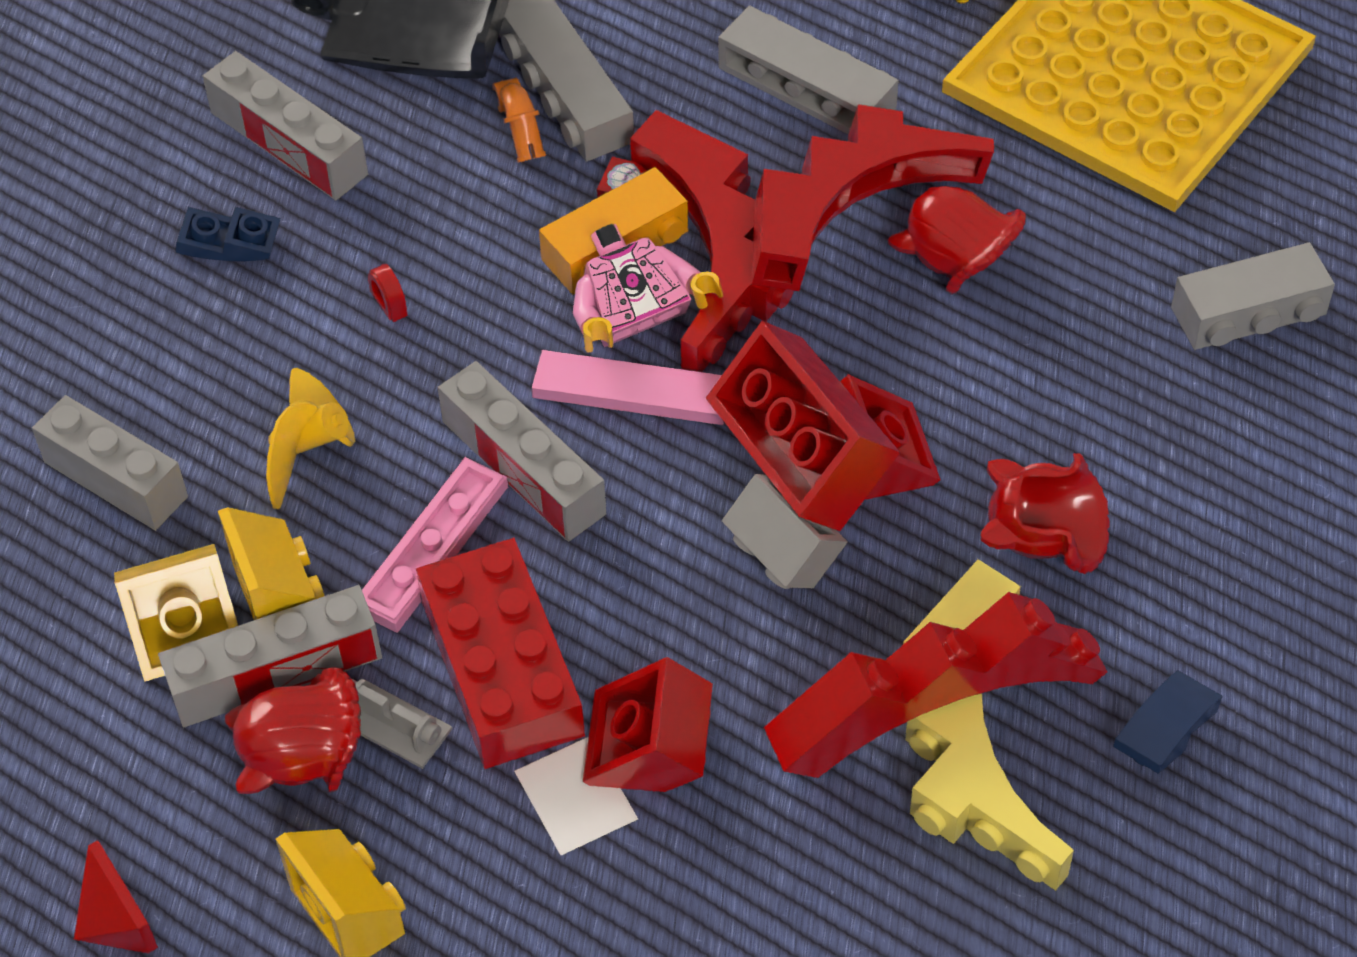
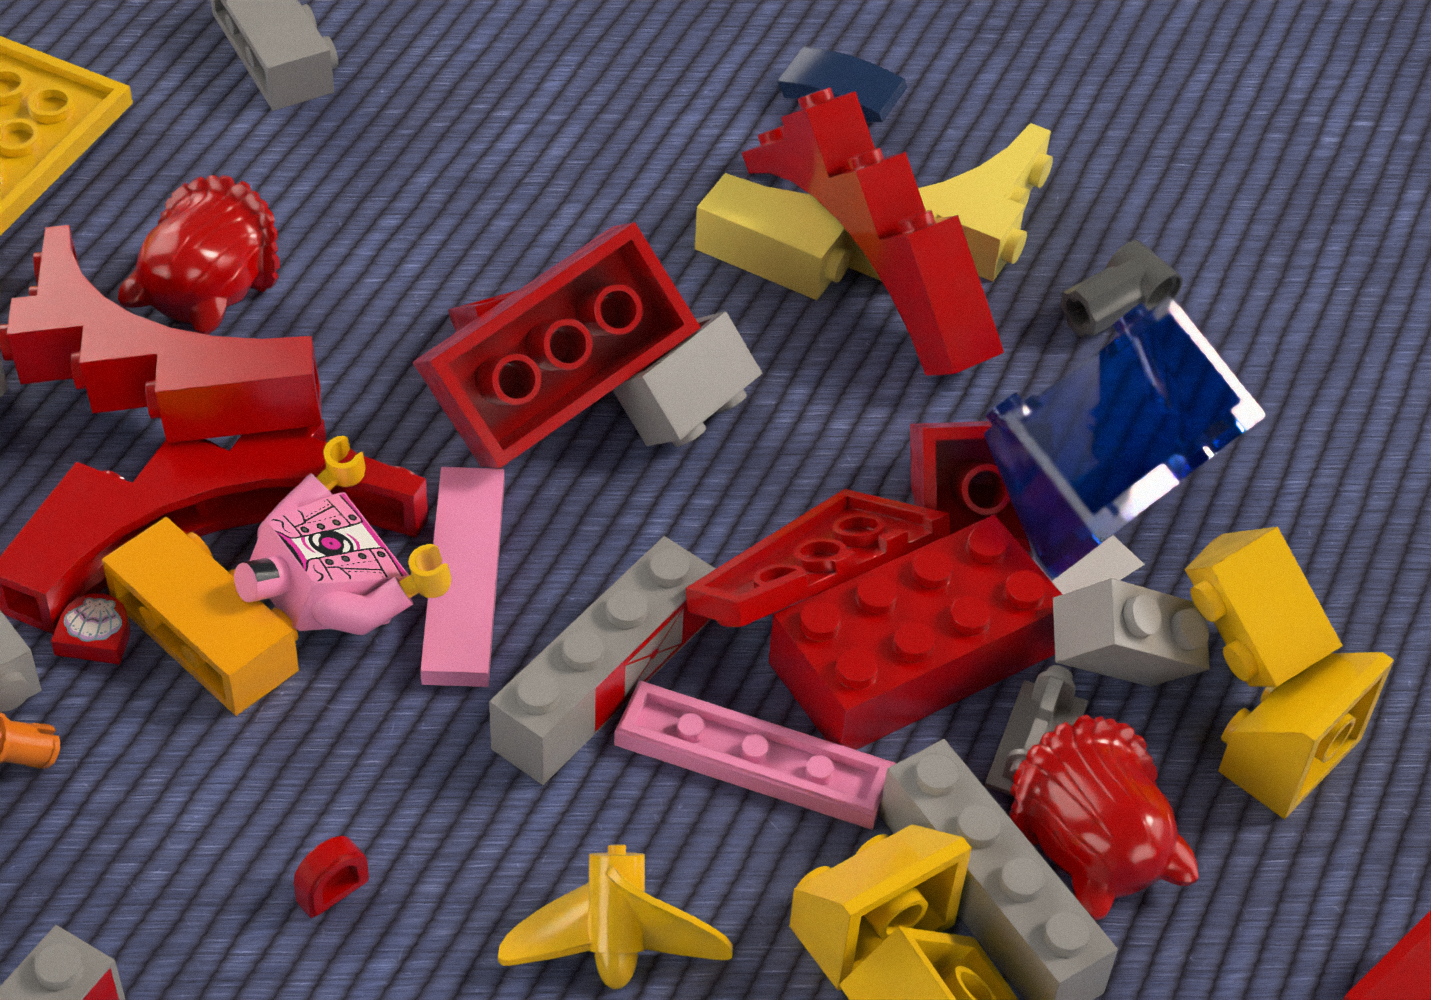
camera: 105 degrees left, 5 degrees down
(439, 863) = (1260, 606): none -> yellow slope
(442, 775) = (1130, 633): none -> light grey brick
(582, 592) = (813, 554): none -> red wing
(628, 790) = (1115, 433): none -> clear blue windscreen
(869, 910) = (1129, 278): none -> dark grey piece
(1048, 512) = (615, 179): red hair -> none

